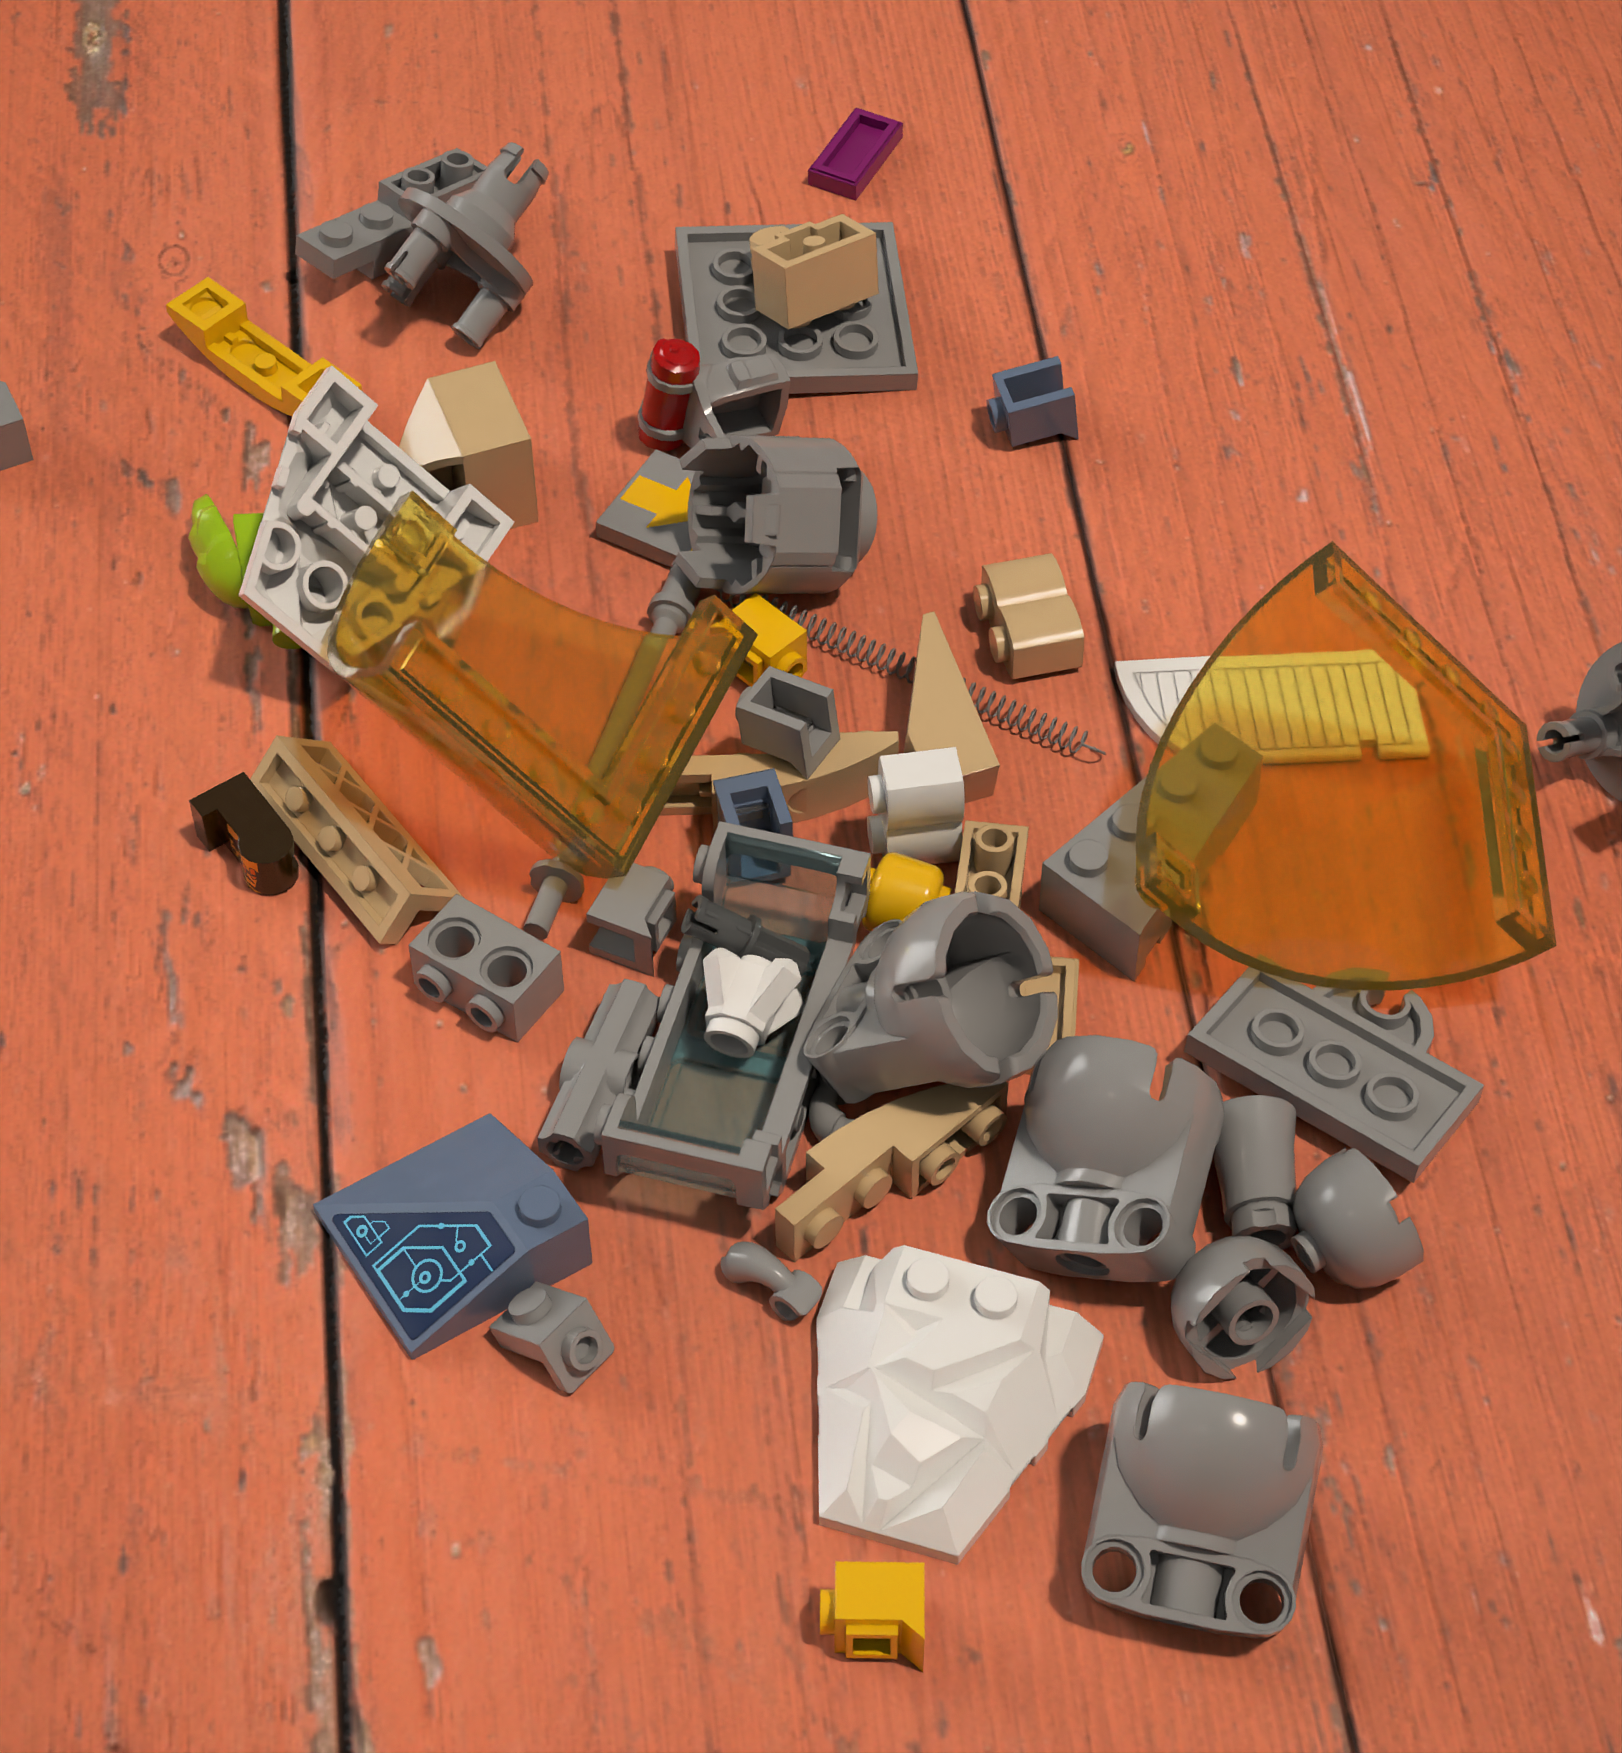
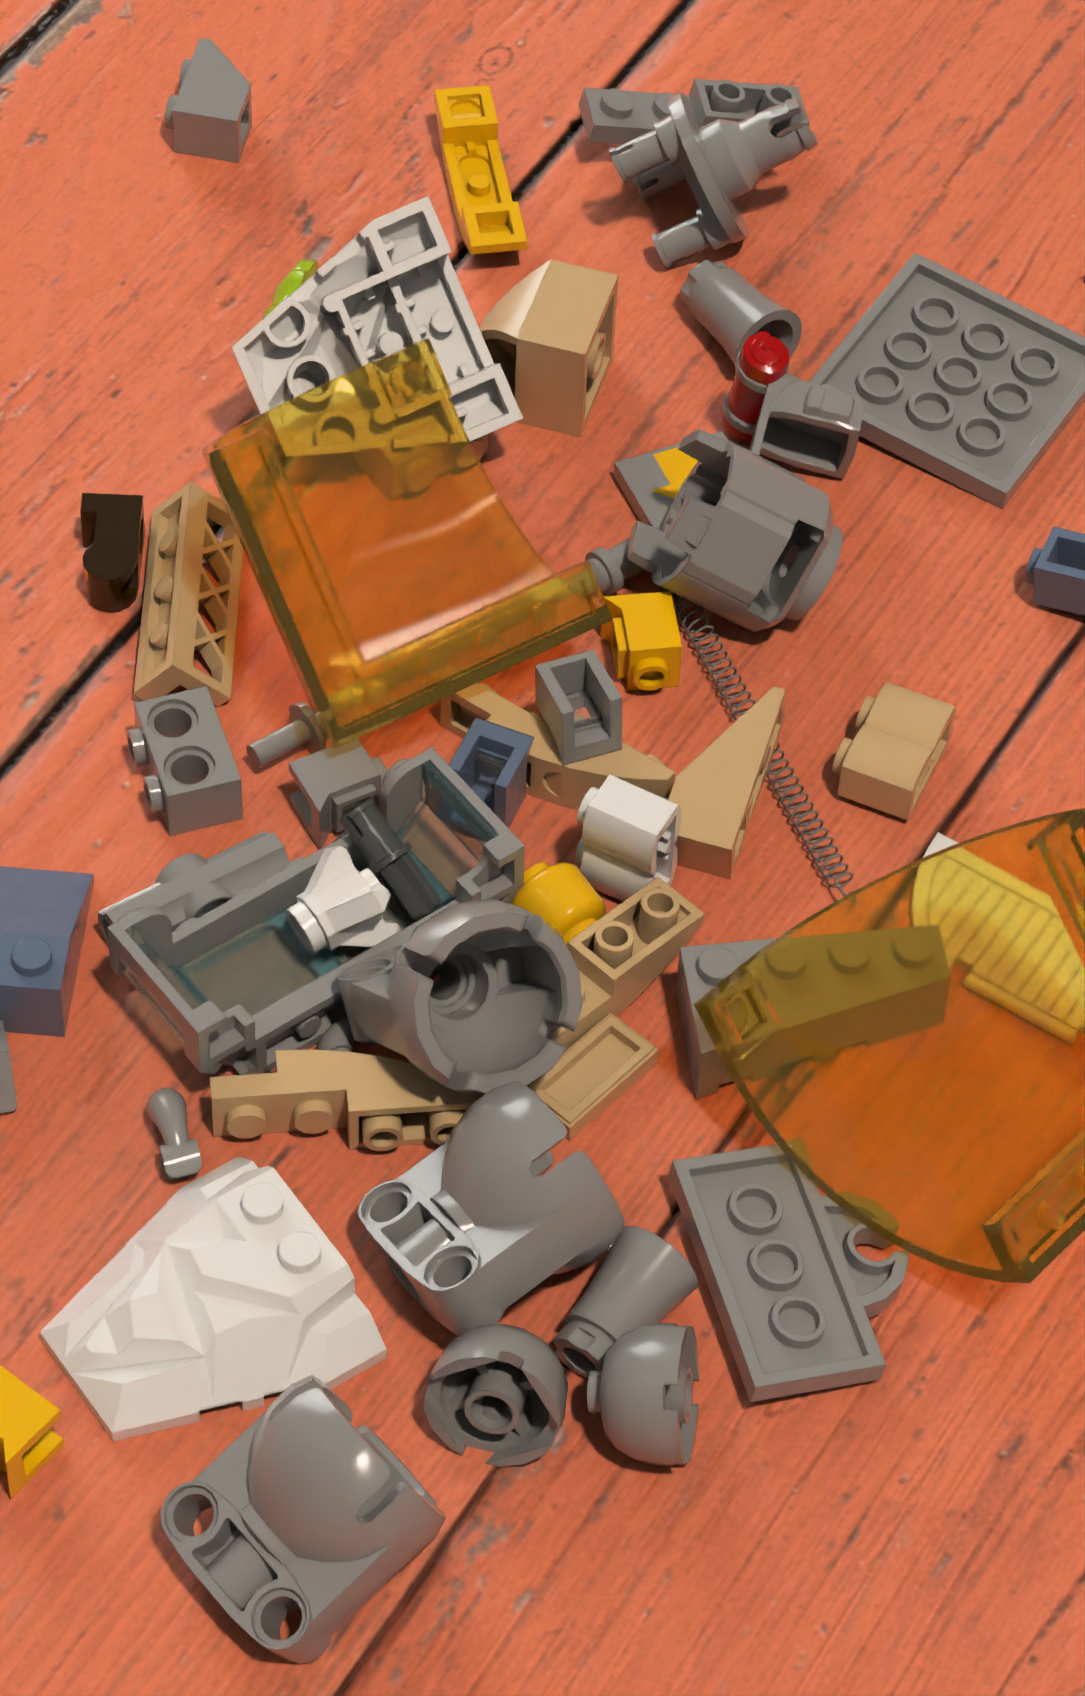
camera: 35 degrees right, 0 degrees up
(586, 351) = (736, 309): none -> light grey plant
(813, 269) = (977, 350): tan brick -> none

